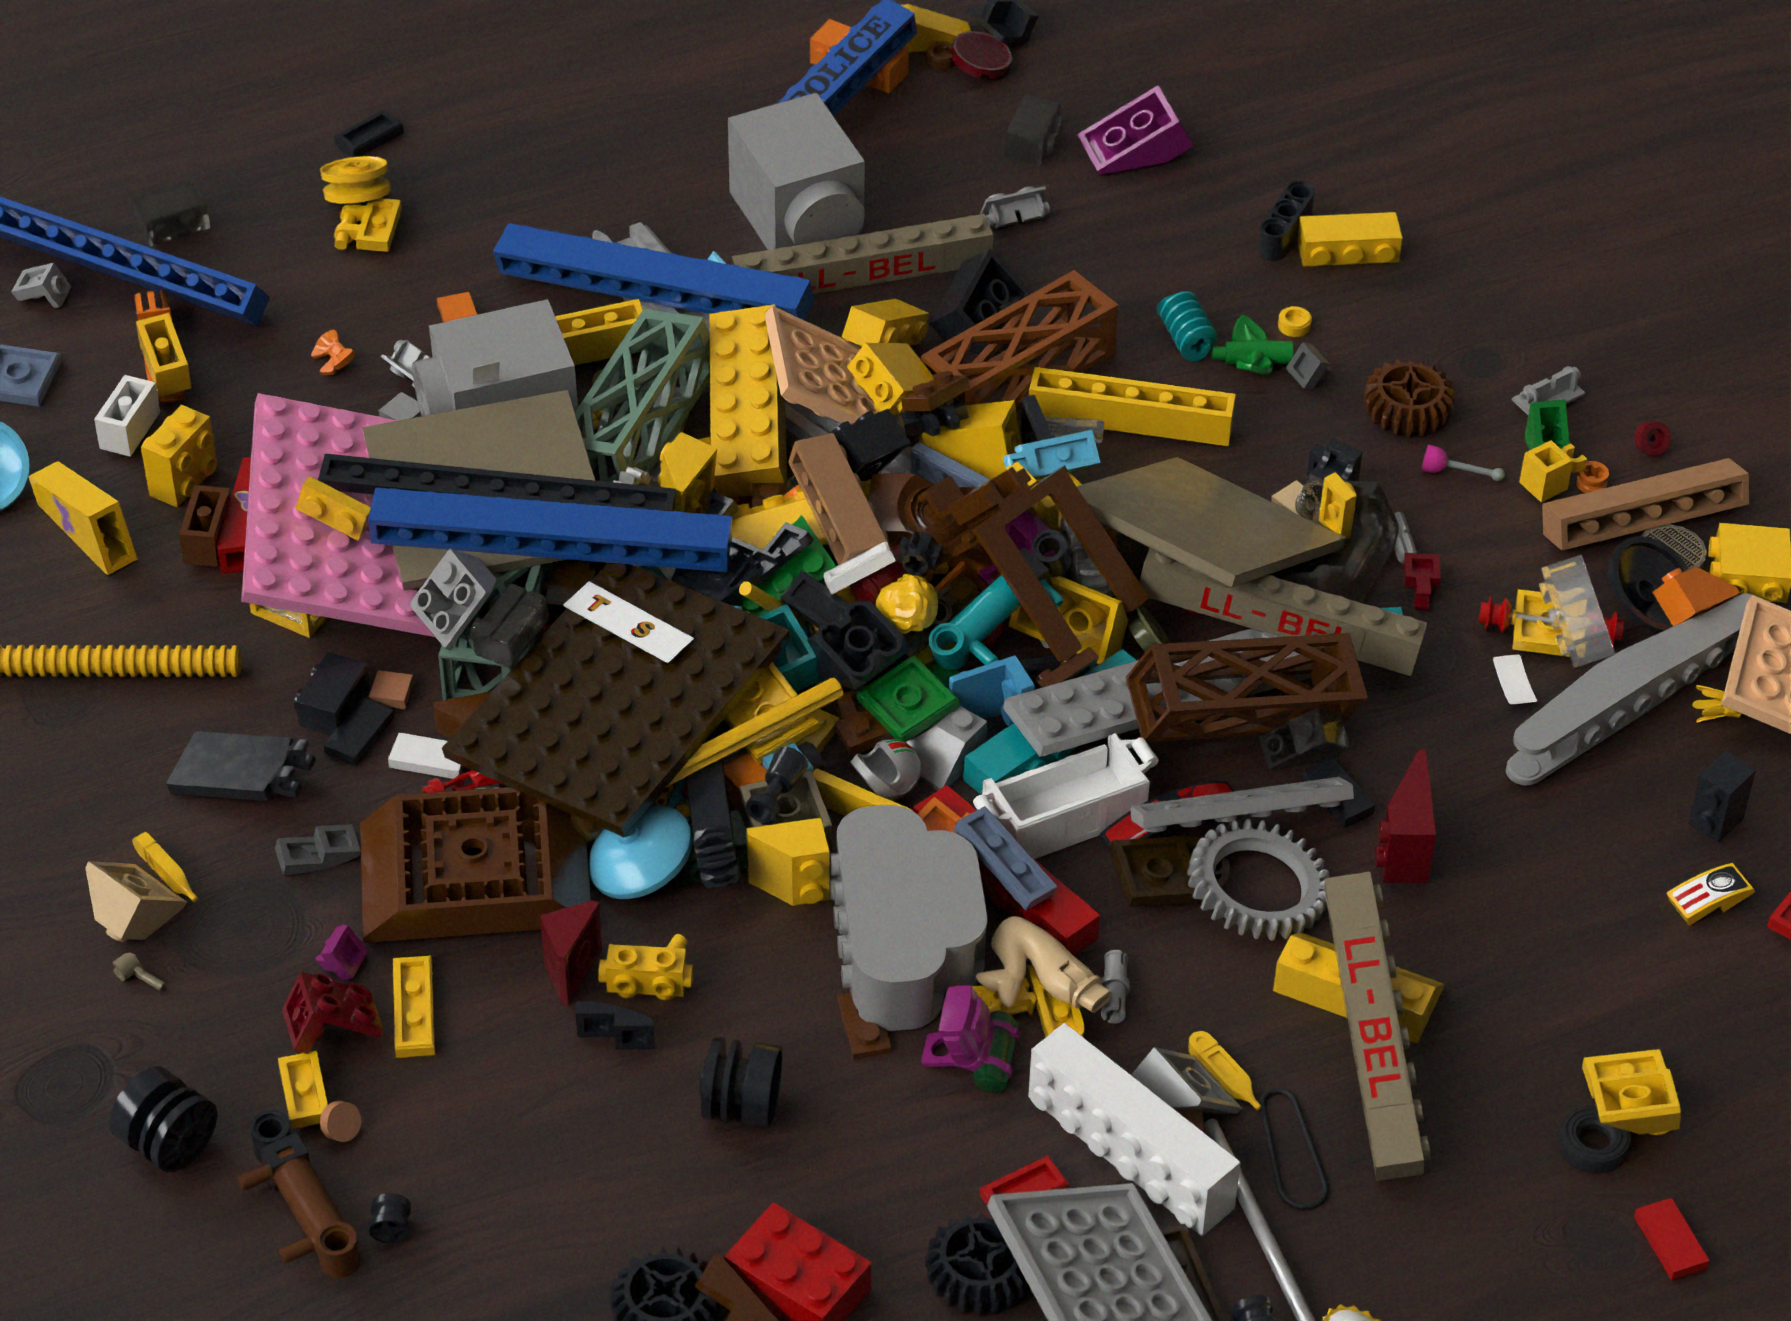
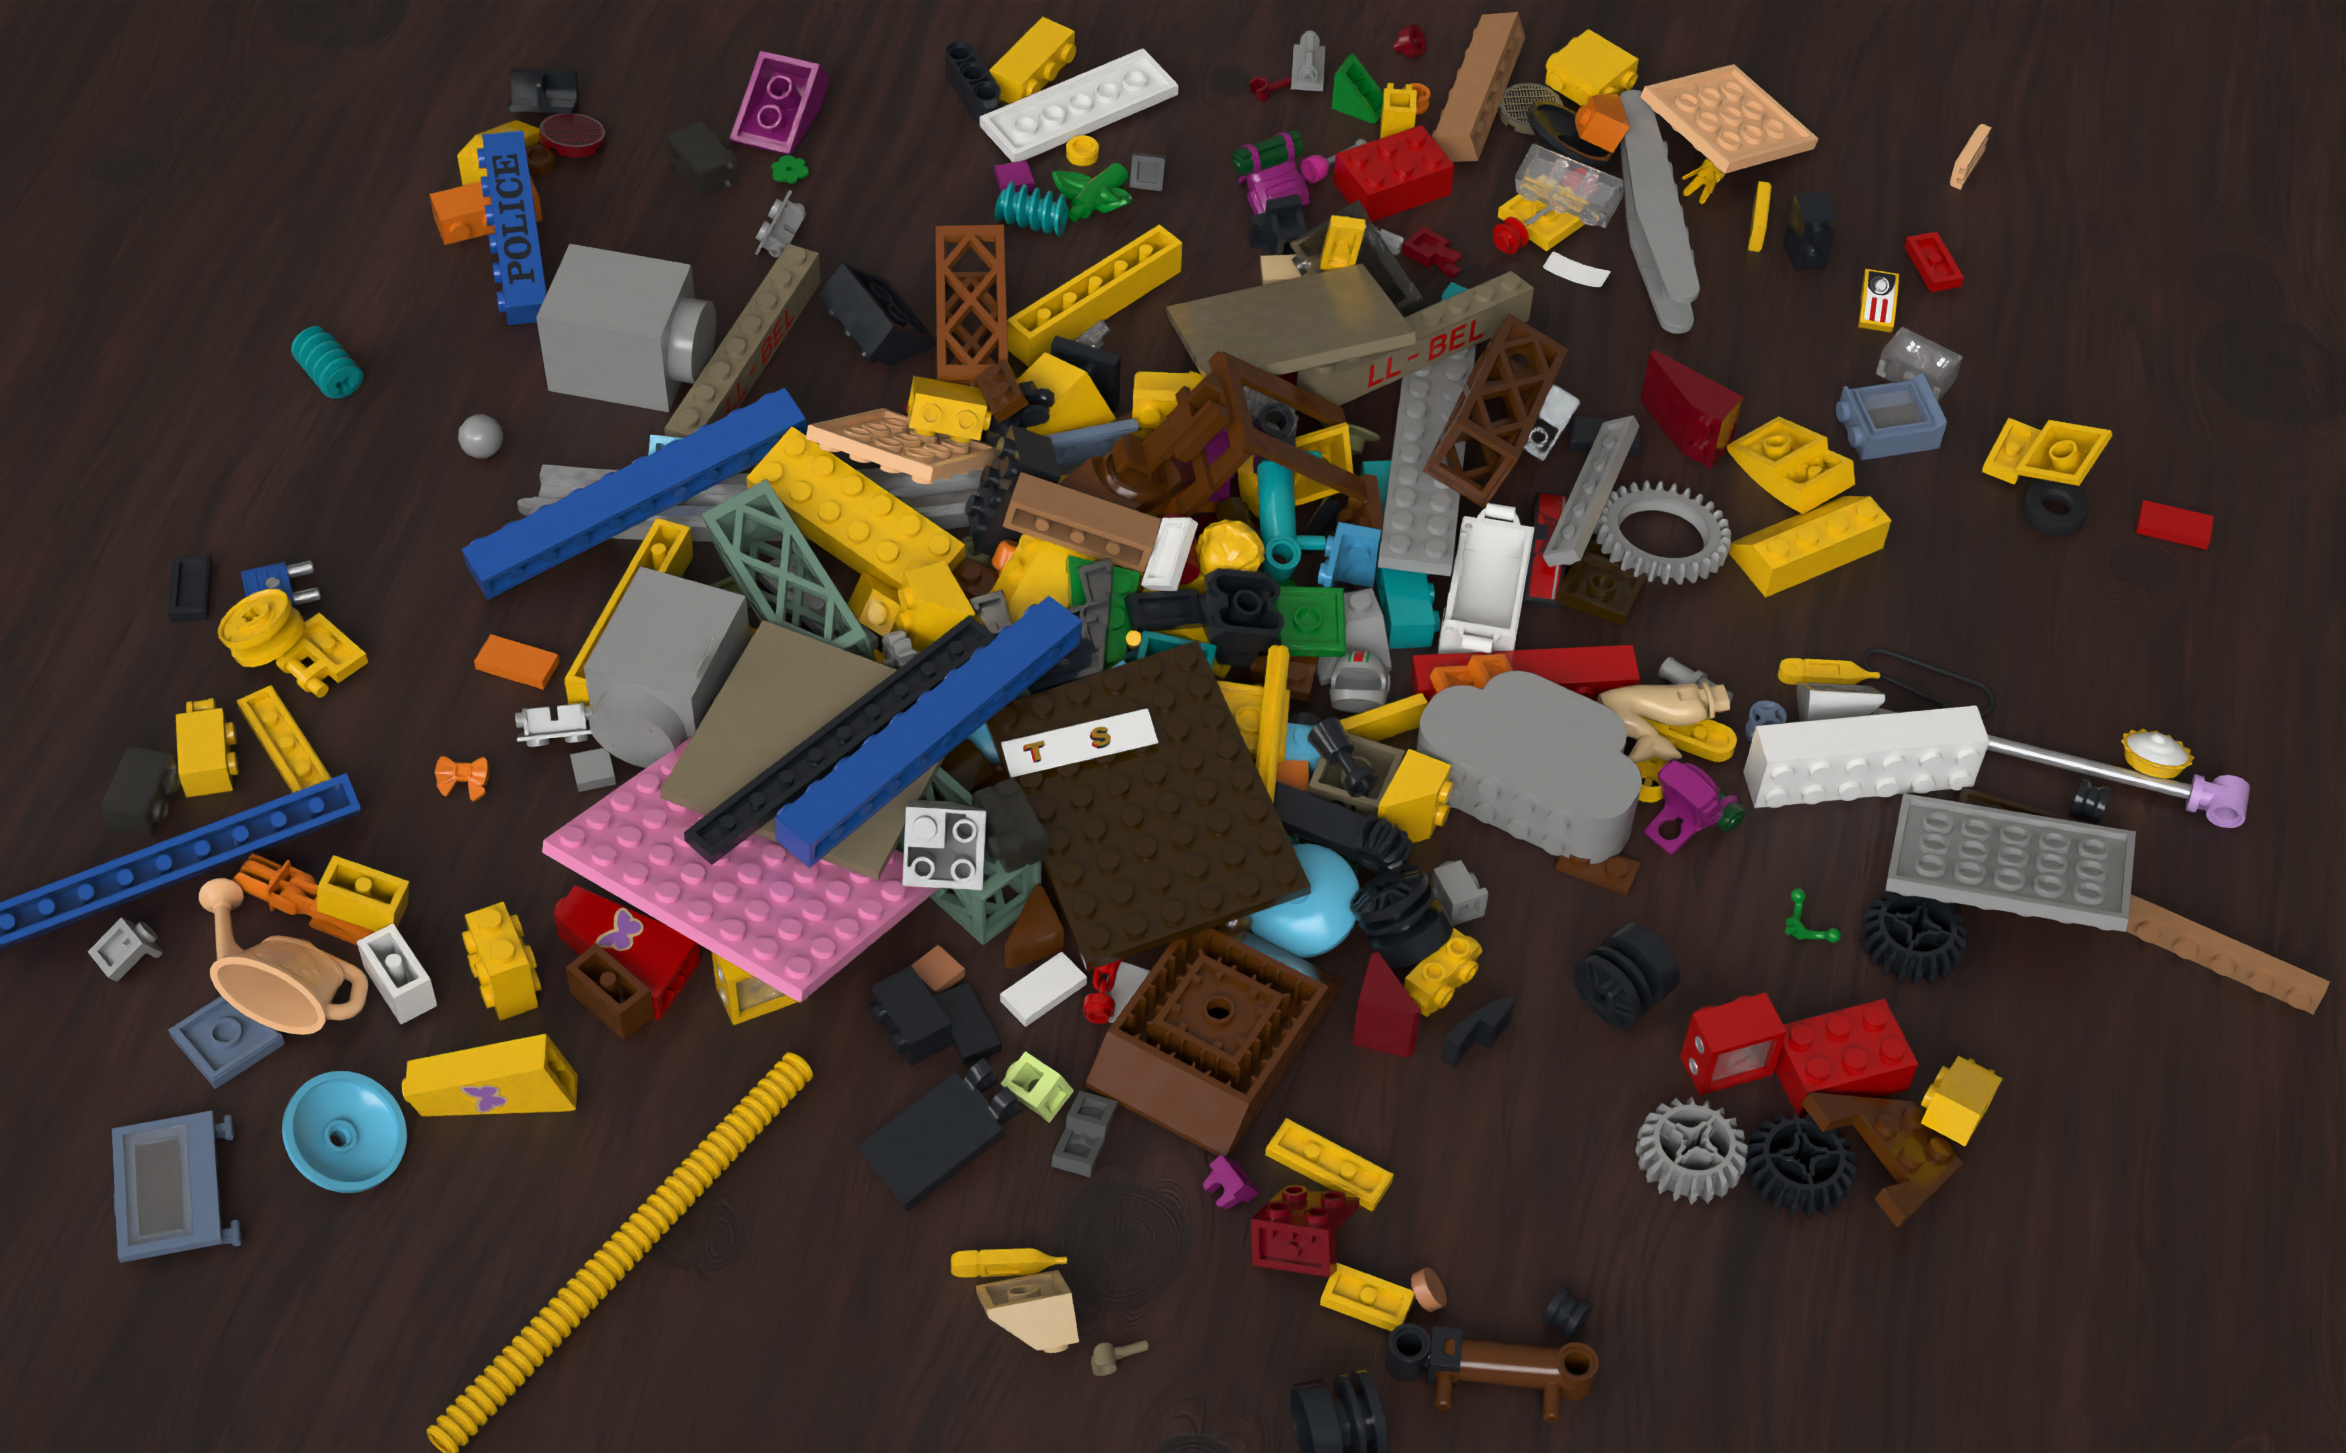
camera: 55 degrees left, 5 degrees up
(75, 365) = (283, 978): none -> light nougat piece
(234, 219) = (205, 749): none -> yellow brick
(284, 252) = (282, 739): none -> yellow tile
(328, 796) = (1037, 1086): none -> yellowish green brick
(333, 508) = (756, 866): yellow plate -> none
(409, 168) = (277, 577): none -> piece
(595, 1207) = (1701, 1168): none -> light grey gear
(624, 70) = (326, 363): none -> teal piece
(639, 180) = (480, 436): none -> light grey piece
(664, 905) = (1402, 916): none -> black wheel
(732, 1182) = (1733, 1043): none -> red piece
(740, 943) = (1459, 892): none -> light grey brick
(886, 323) = (858, 381): yellow brick -> none
(919, 553) = (1201, 503): black gear -> none
(931, 1209) = (1798, 930): none -> green piece
(1006, 858) = (1546, 660): sand blue plate -> none
(1036, 1176) = (1851, 865): red tile -> none
(1048, 455) = (1135, 365): medium azure hinge -> none
(1081, 181) = (789, 169): none -> green plant
(1121, 1048) = (1764, 713): none -> sand blue wheel
(1218, 301) = (1017, 172): none -> magenta tile
(1337, 291) = (1078, 105): none -> white plate
(1374, 1026) = (1889, 550): dark tan brick -> none
(1378, 429) = (1271, 169): none -> magenta piece
(1409, 397) = (1229, 130): reddish brown gear -> none
(1437, 928) = (1793, 464): none -> yellow slope
(1477, 506) = (1394, 173): none -> red brick
(1488, 385) = (1262, 88): none -> dark red hand
(1566, 967) = (1892, 418): none -> sand blue window
(1657, 957) = (1912, 354): none -> clear brick
(1696, 762) = (1759, 216): none -> yellow tile

